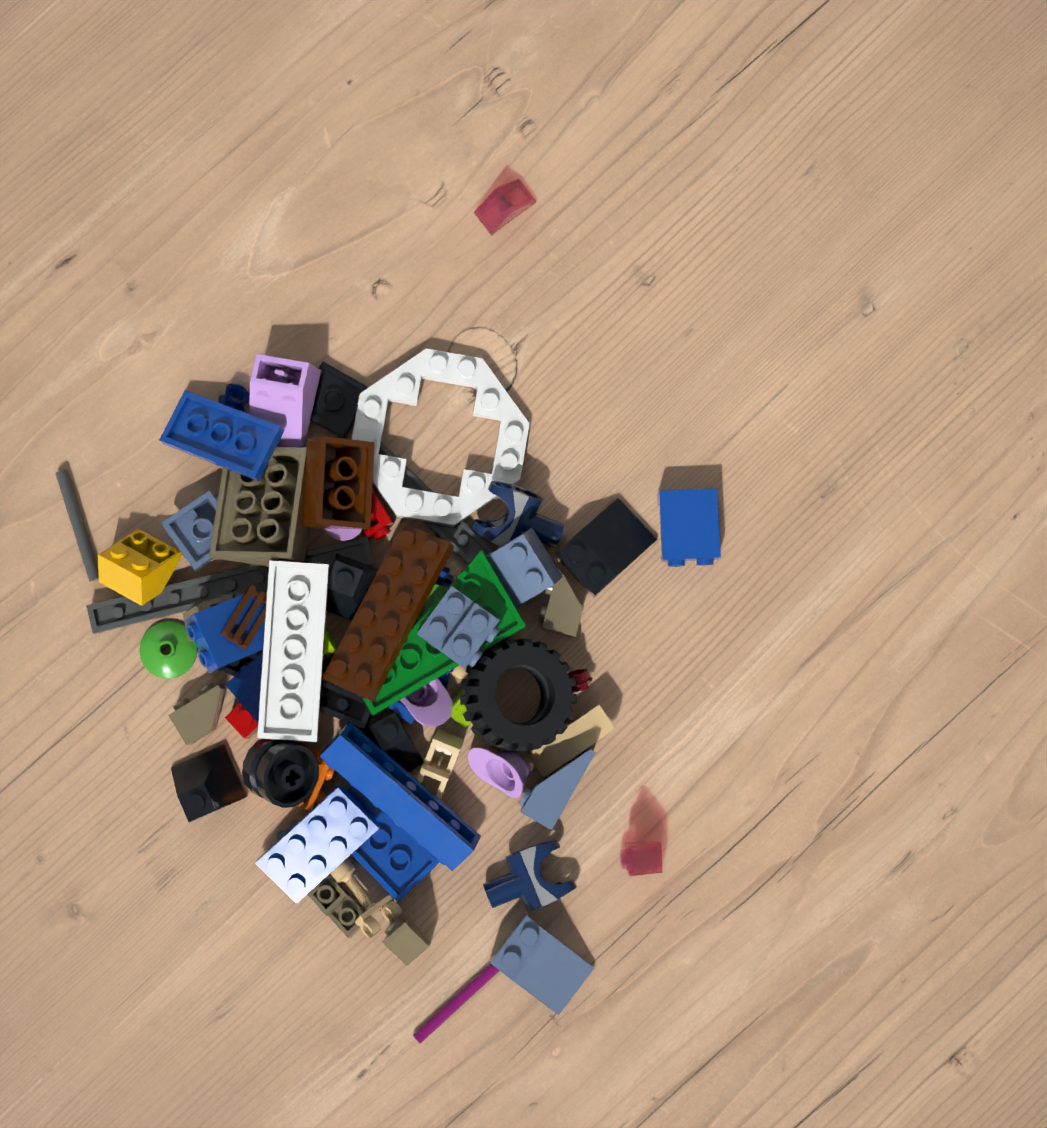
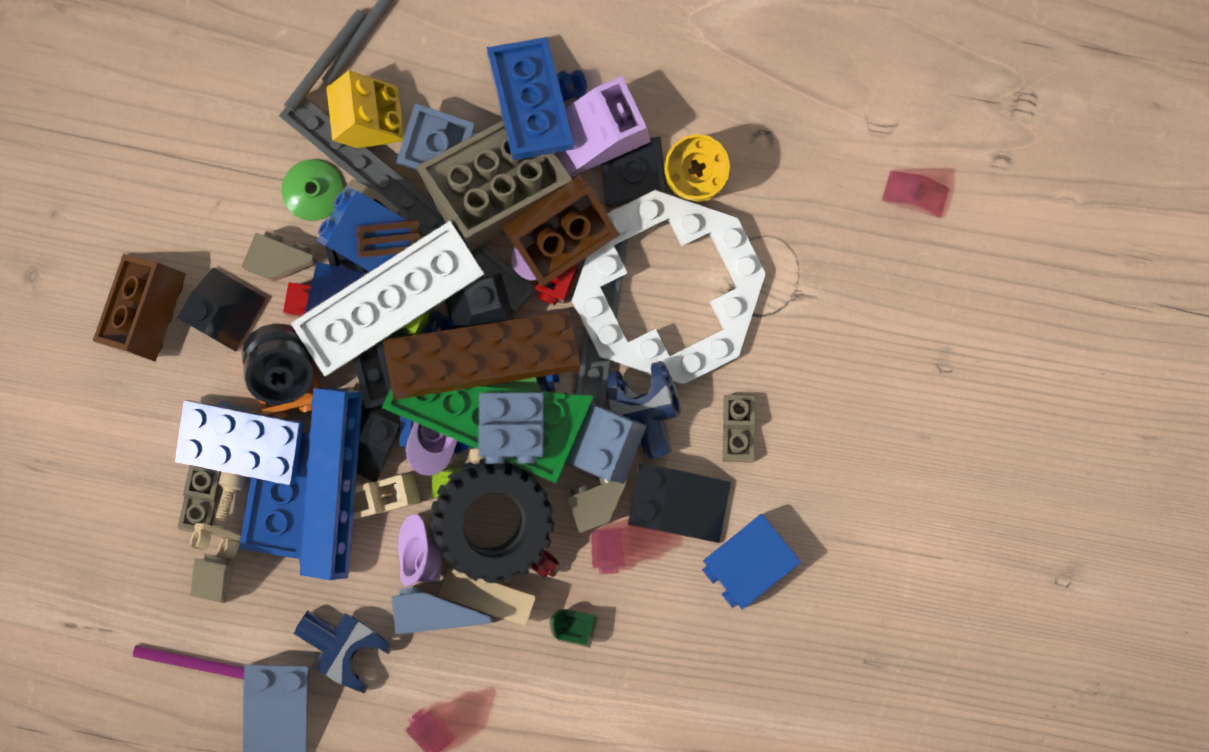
camera: 60 degrees right, 0 degrees up
(77, 568) = (325, 60): none -> dark grey bar
(159, 845) = (139, 307): none -> reddish brown slope
(337, 627) = (436, 321): none -> plate
(357, 336) = (704, 151): none -> yellow wheel
(582, 463) = (738, 428): none -> dark tan slope
(604, 625) = (607, 550): none -> clear pink brick
(641, 693) = (573, 627): none -> dark green plate

